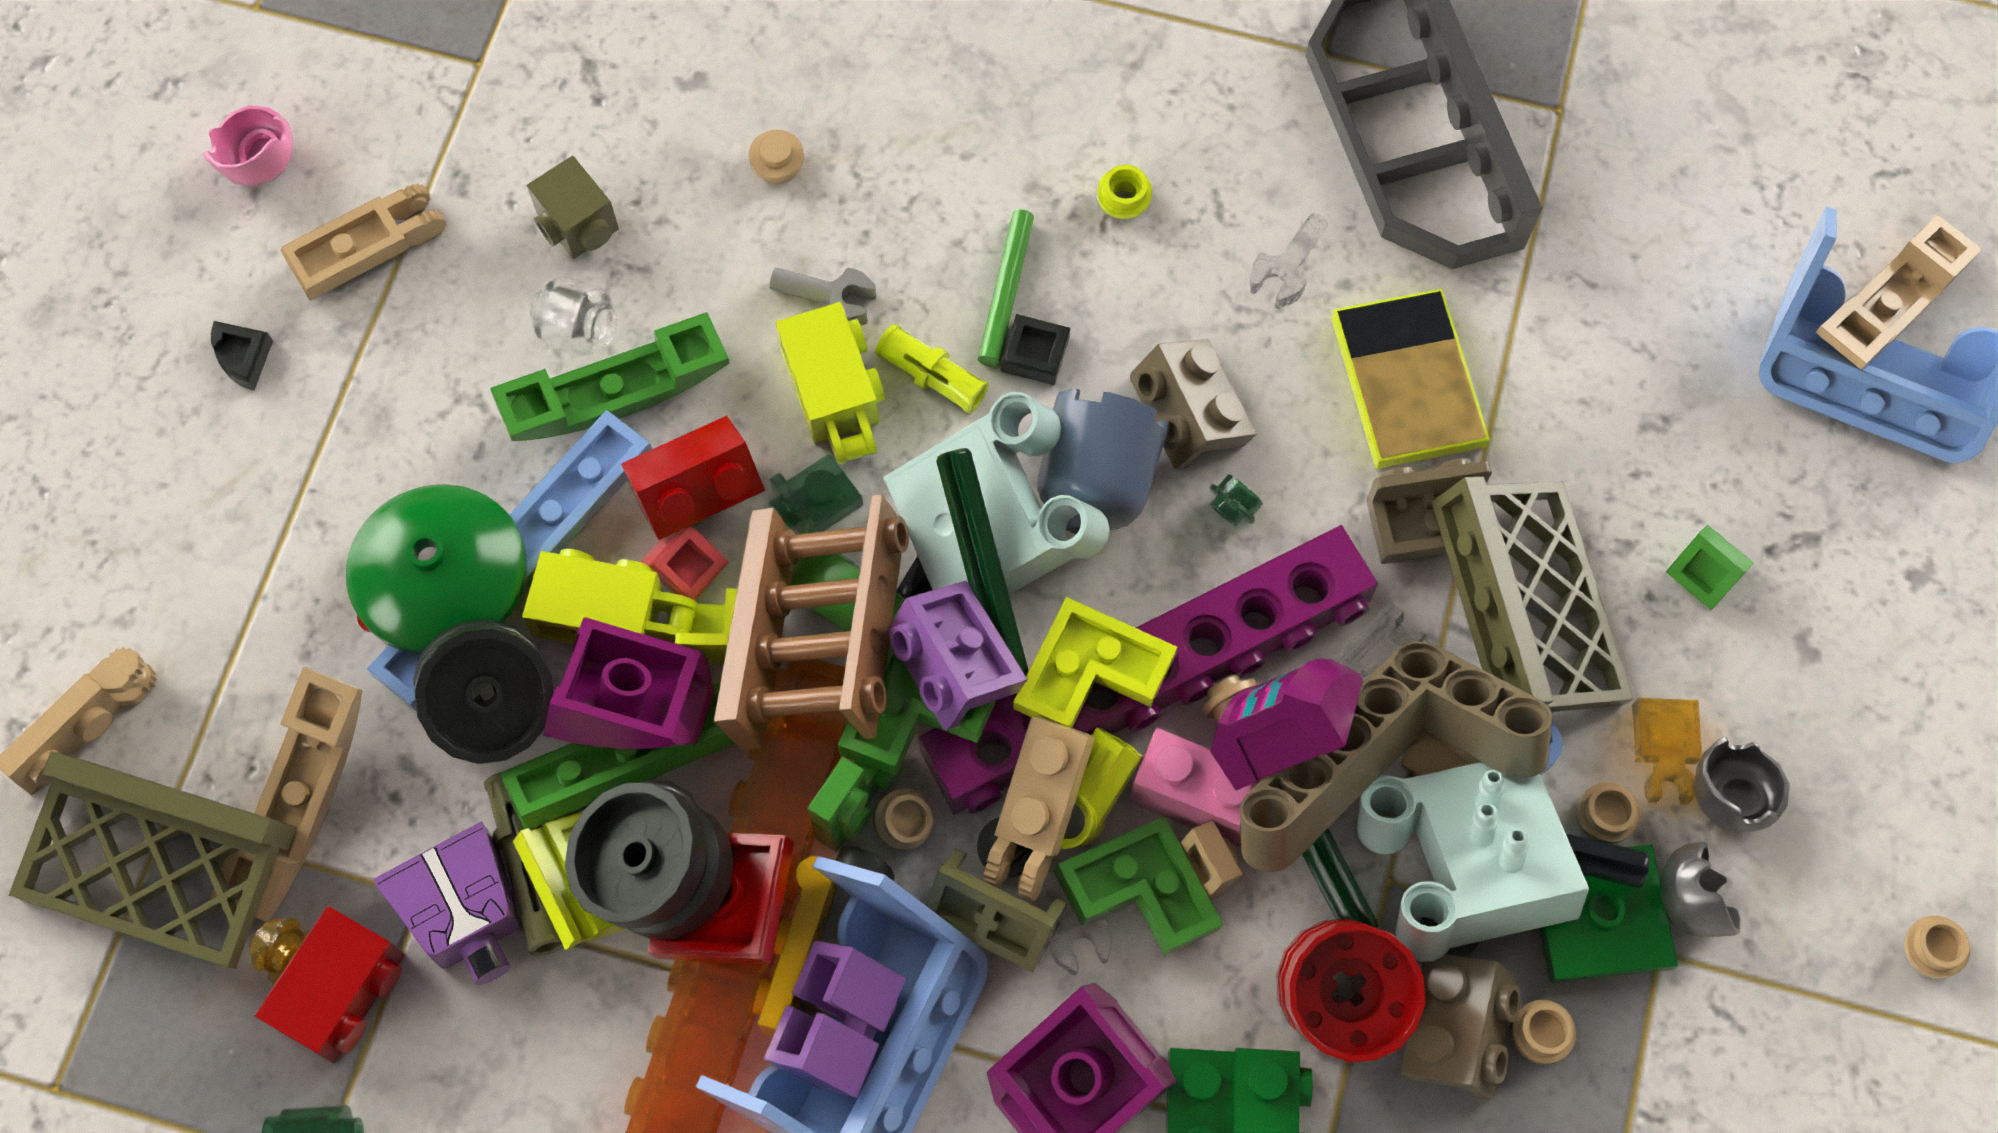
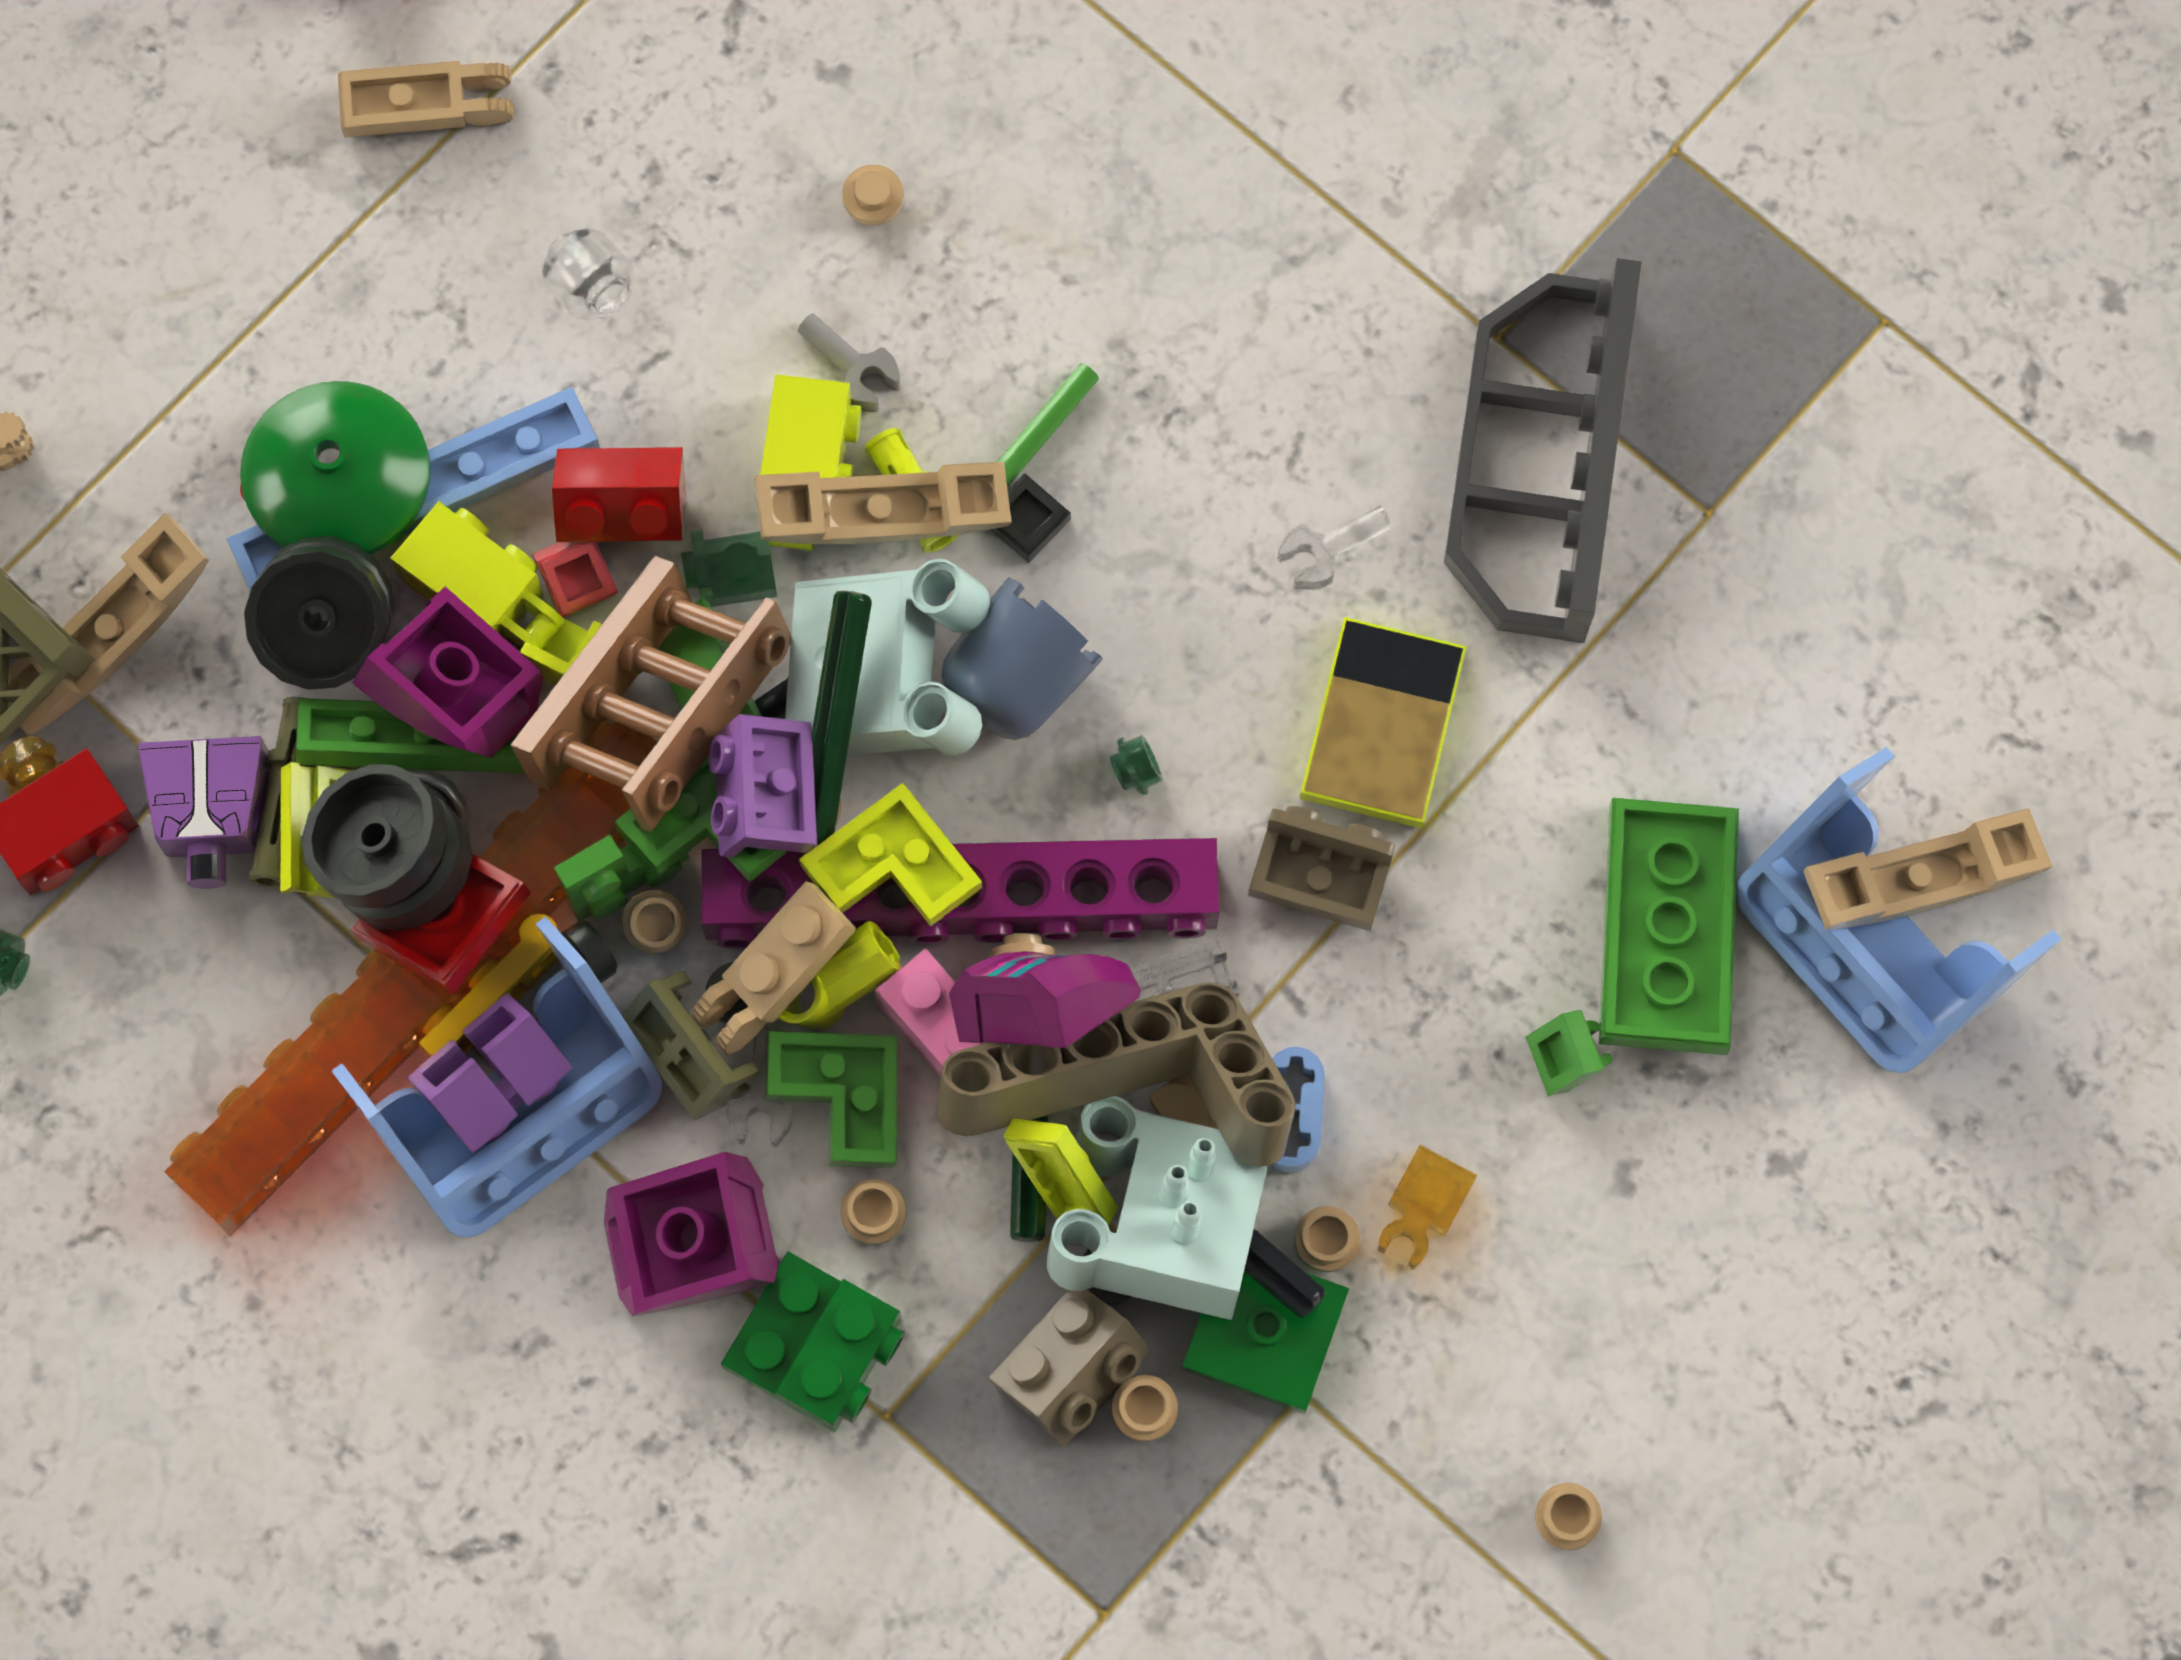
camera: 25 degrees right, 5 degrees up
(240, 352) = (254, 160): pearl dark grey tile -> none
(572, 208) = (640, 161): olive brick -> none
(620, 384) = (593, 363): bright green slope -> none
(924, 385) = (882, 507): none -> tan slope
(1127, 179) = (1207, 379): neon yellow plate -> none
(1195, 397) = (1150, 643): dark tan bracket -> none
(1212, 858) = (916, 1097): tan plate -> none
(1223, 977) = (873, 1212): none -> tan plate
(1370, 860) = (1059, 1168): none -> neon yellow plate
(1386, 990) = (954, 1309): red wheel -> none
(1498, 602) = (1325, 970): olive fence -> none
(1692, 897) = (1359, 1350): flat silver hair -> none
(1727, 431) = (1669, 926): none -> bright green tile
(1740, 786) = (1464, 1274): flat silver hair -> none

